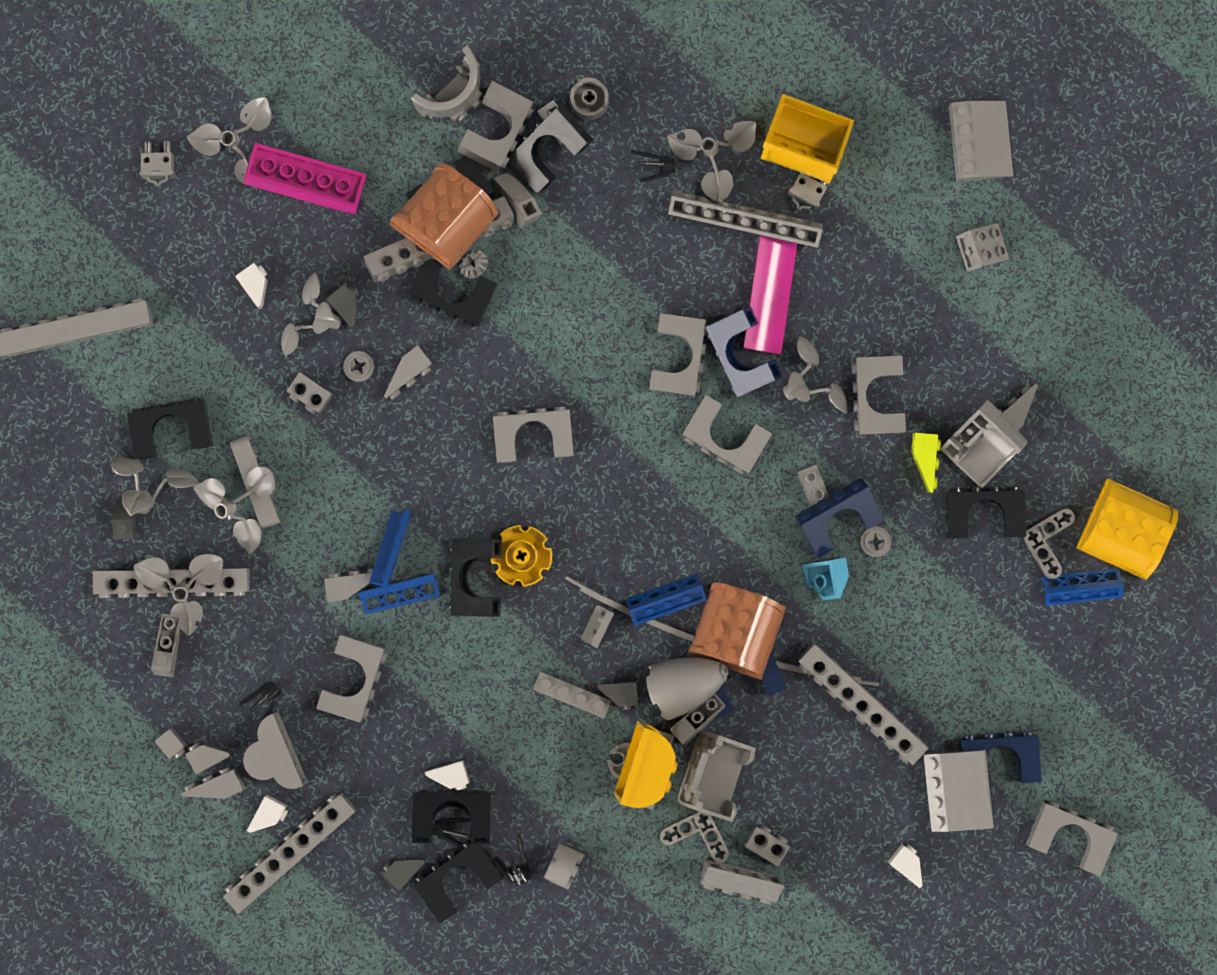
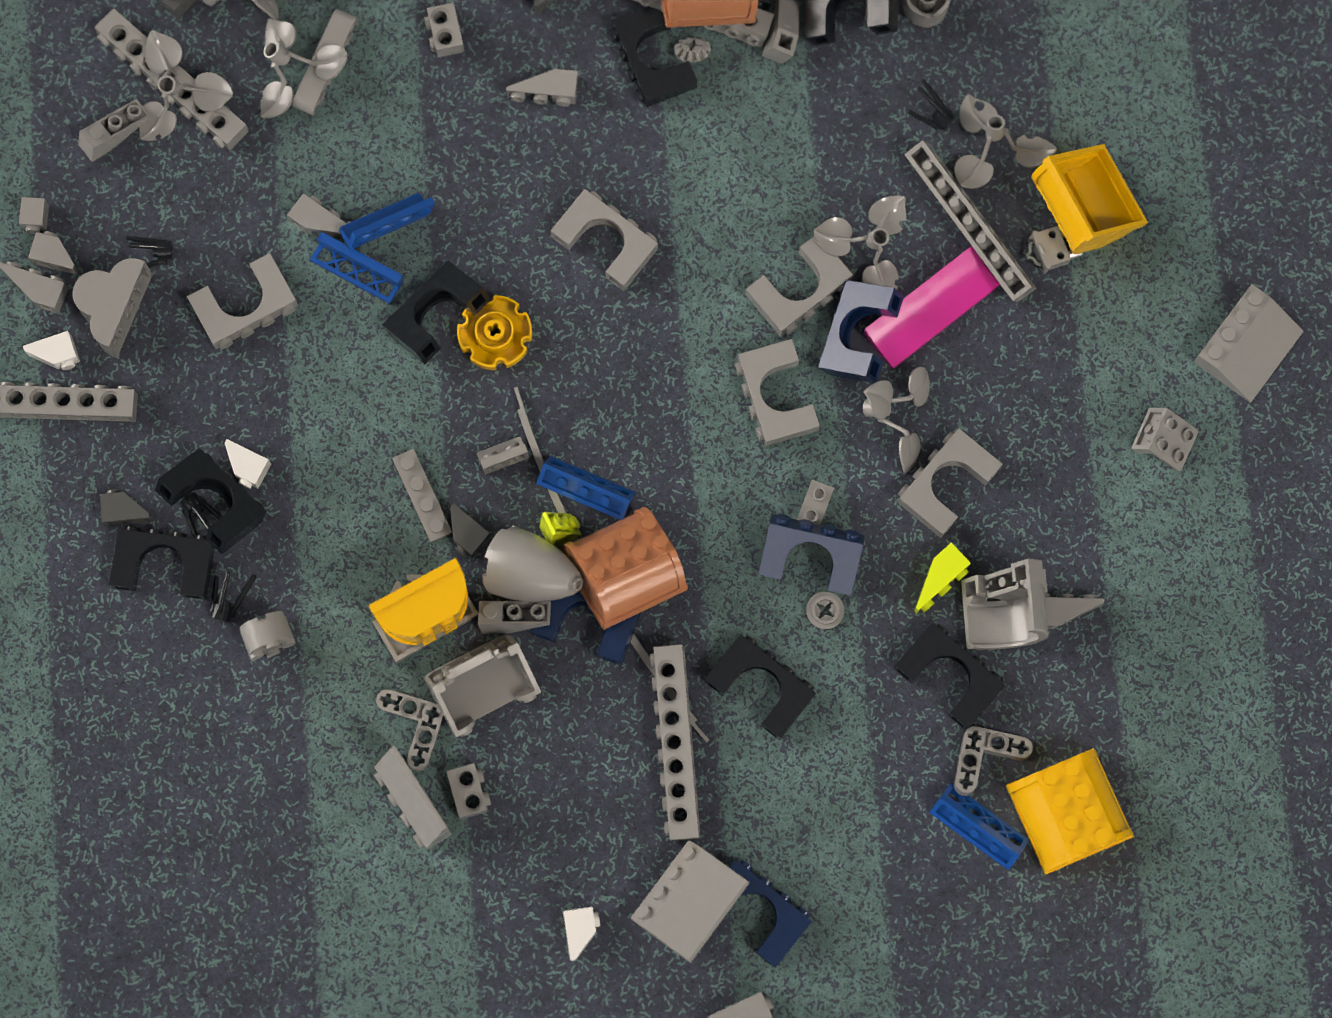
camera: 40 degrees right, 10 degrees down
(356, 375) = (504, 38): light grey gear -> none
(673, 305) = (835, 234): none -> light grey plant
(676, 640) = (559, 527): none -> neon yellow slope
(827, 577) = (751, 599): medium azure slope -> none
(904, 610) = (745, 656): none -> black arch

